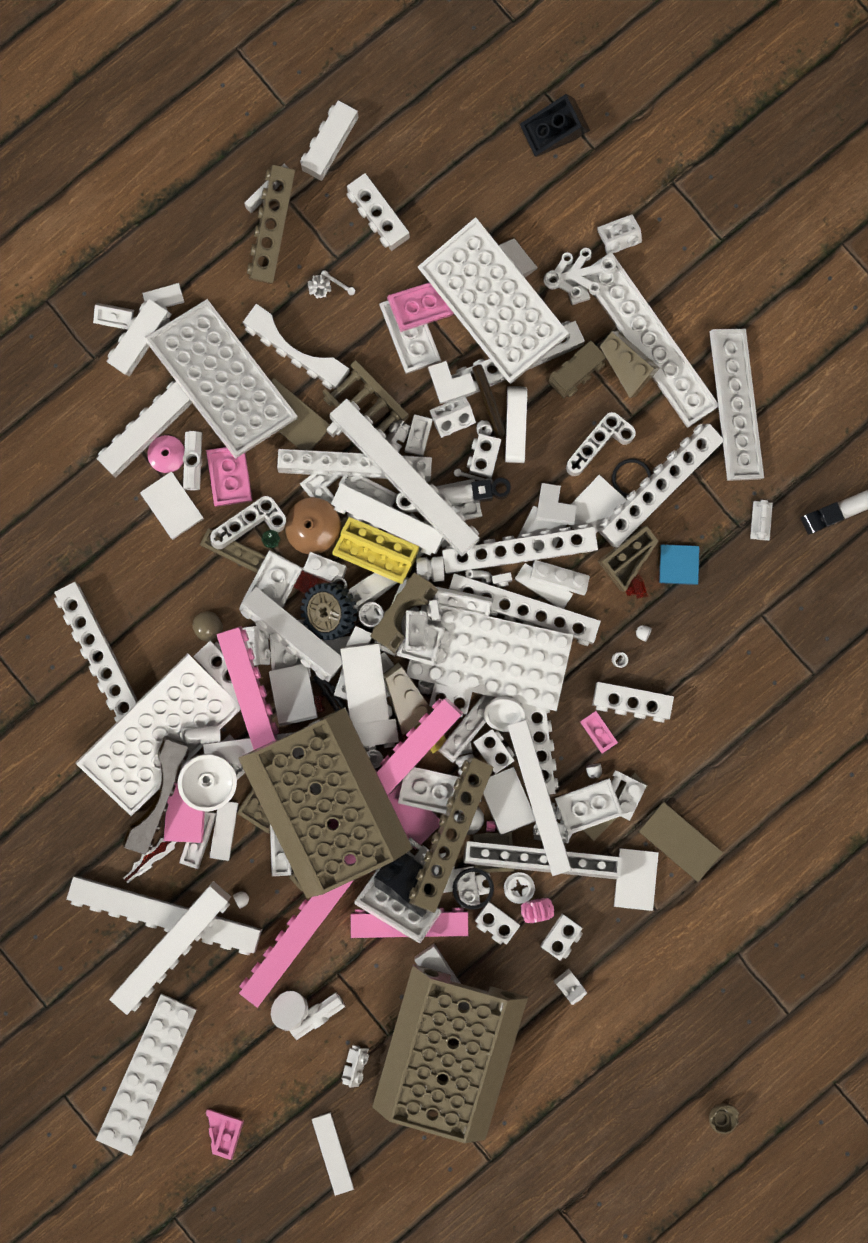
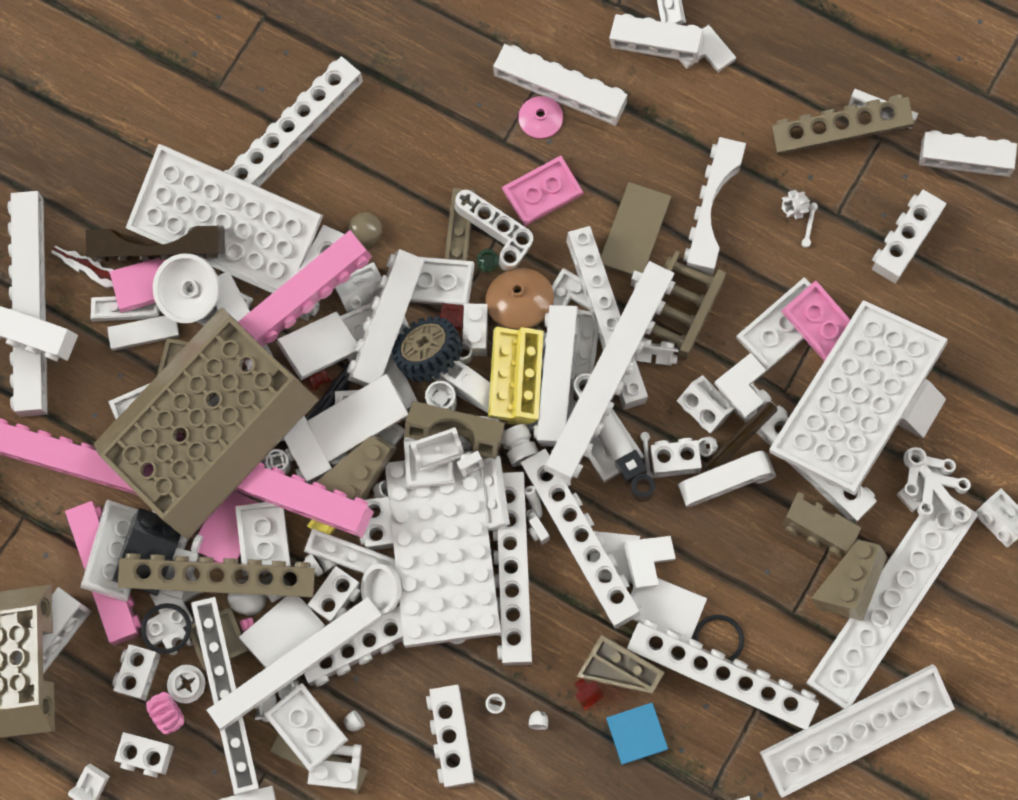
camera: 75 degrees right, 10 degrees down
(171, 505) = (485, 143): white tile -> none
(193, 448) = (556, 141): white piece -> none
(203, 735) = (239, 267): white hinge -> none
(221, 378) = (645, 138): white plate -> none
(241, 899) = (71, 377): white hinge -> none
(359, 637) = (409, 392): white brick -> none
(418, 435) = (669, 376): white plate -> none
(554, 595) = (549, 583): white tile -> none
(559, 577) = (566, 596): white plate -> none
(596, 446) = (738, 583): white beam -> none
(598, 732) = (400, 710): bright pink plate -> none

